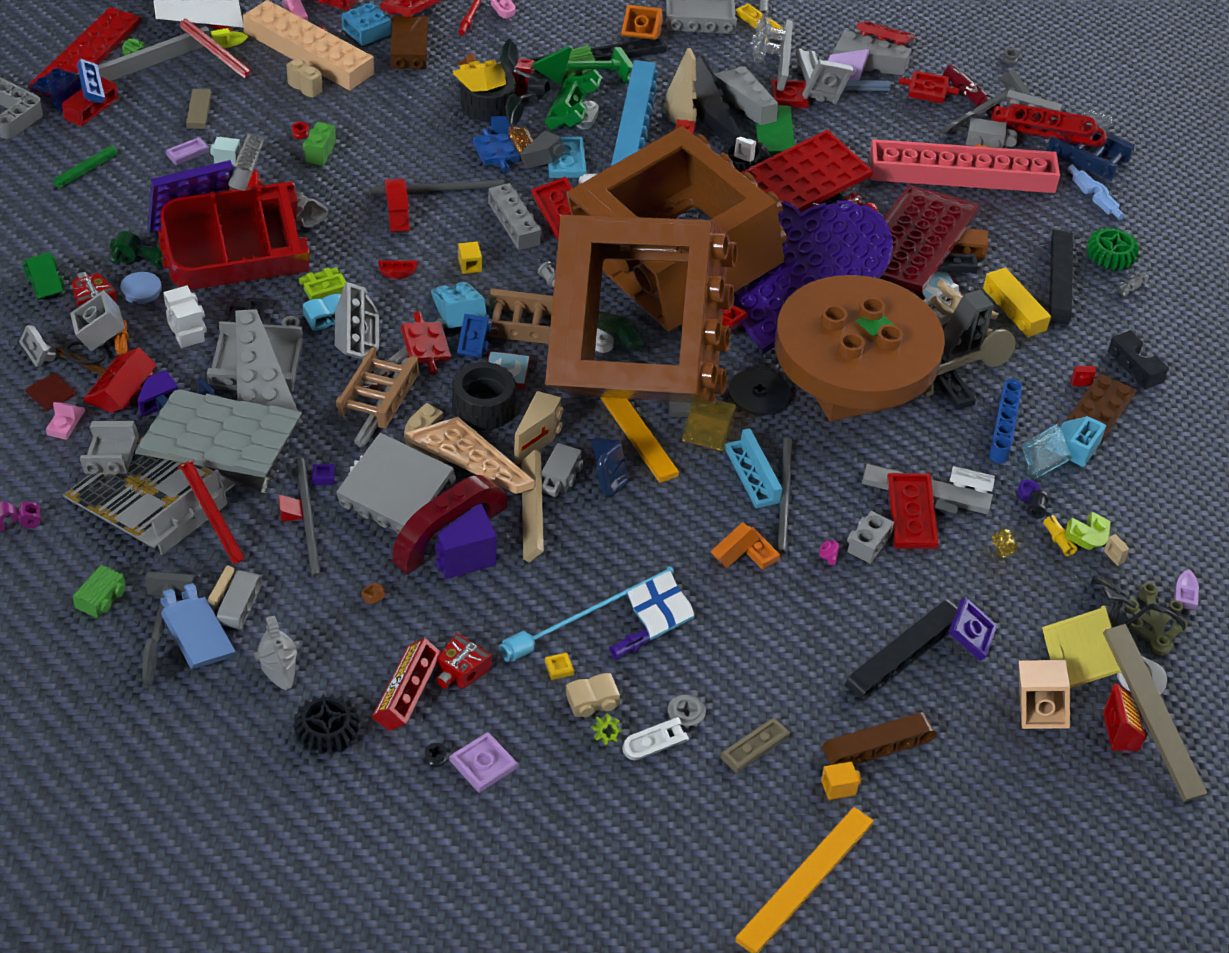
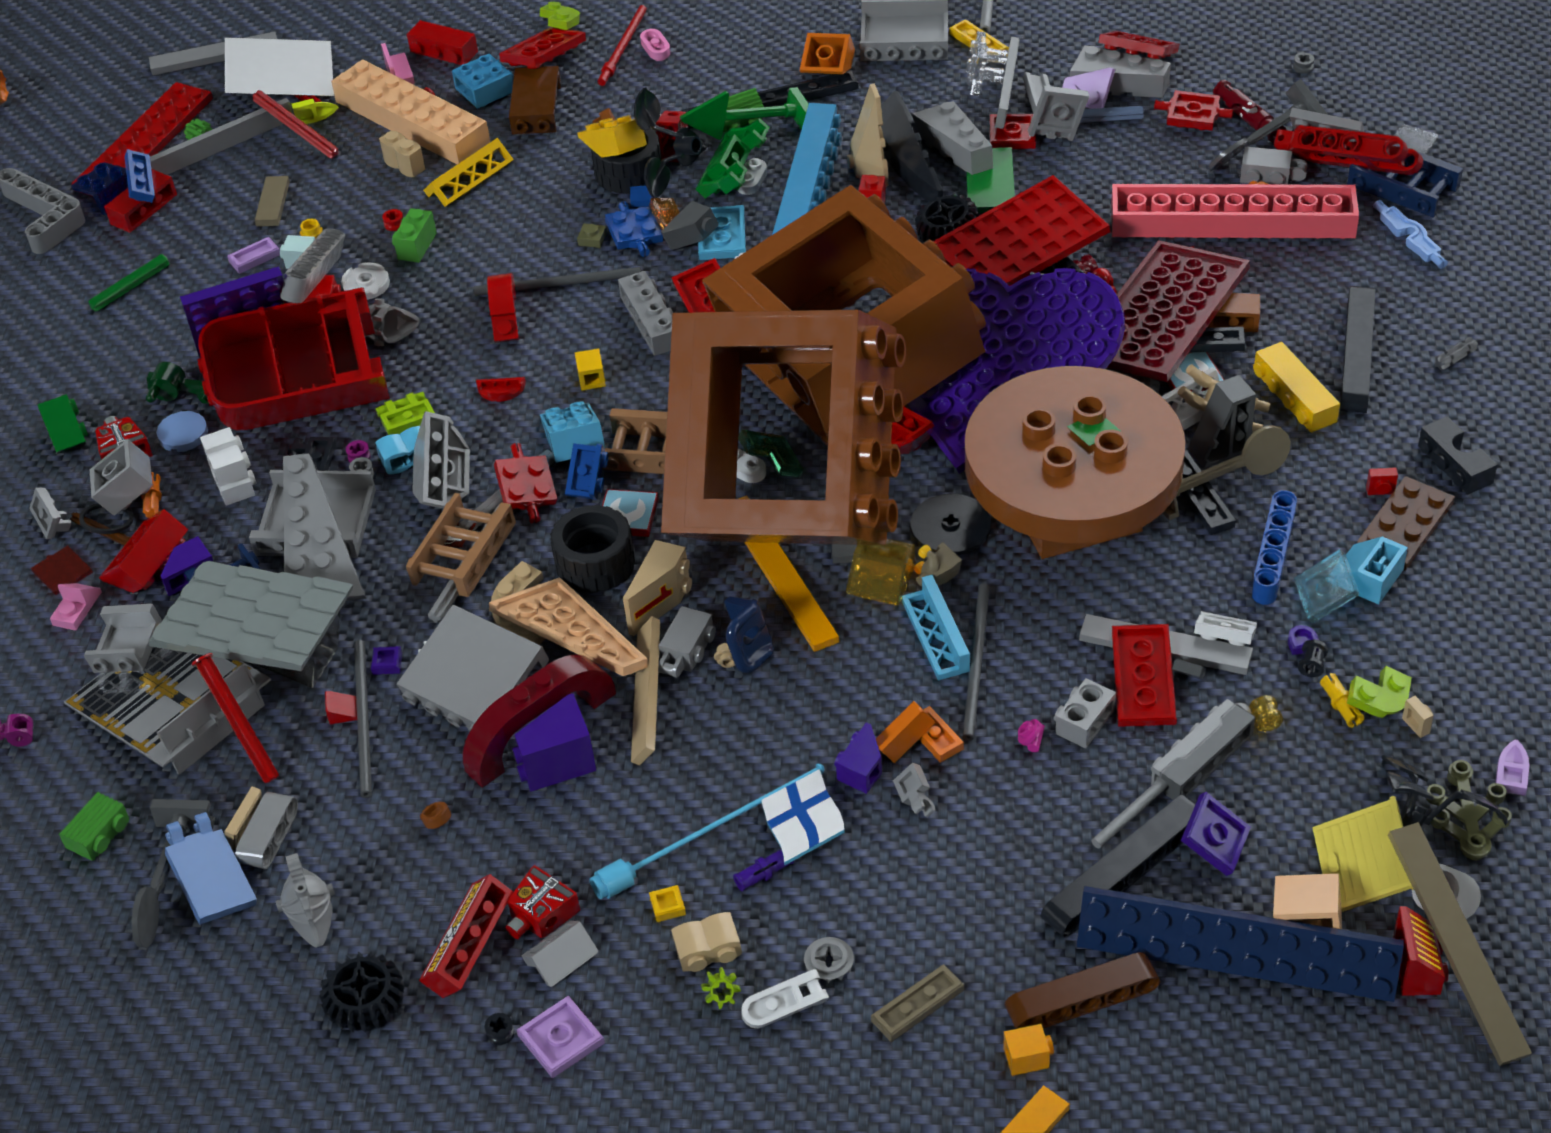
camera: 10 degrees right, 0 degrees up
(233, 132) = (310, 228): none -> yellow plate
(282, 173) = (369, 276): none -> white plate
(286, 309) = (357, 449): none -> magenta bush
(360, 89) = (463, 168): none -> yellow fence
(462, 153) = (592, 235): none -> olive plate
(480, 699) = (561, 952): none -> light grey panel
(592, 482) = (724, 656): none -> tan plate
(702, 566) = (861, 761): none -> dark purple slope
(742, 587) = (911, 788): none -> light grey plate
(745, 149) = (945, 207): white tile -> none
(756, 420) = (942, 564): none -> dark tan piece
(950, 575) = (1190, 760): none -> piece
(995, 708) = (1241, 943): none -> dark blue plate
(1113, 248) = (1429, 307): green gear -> none

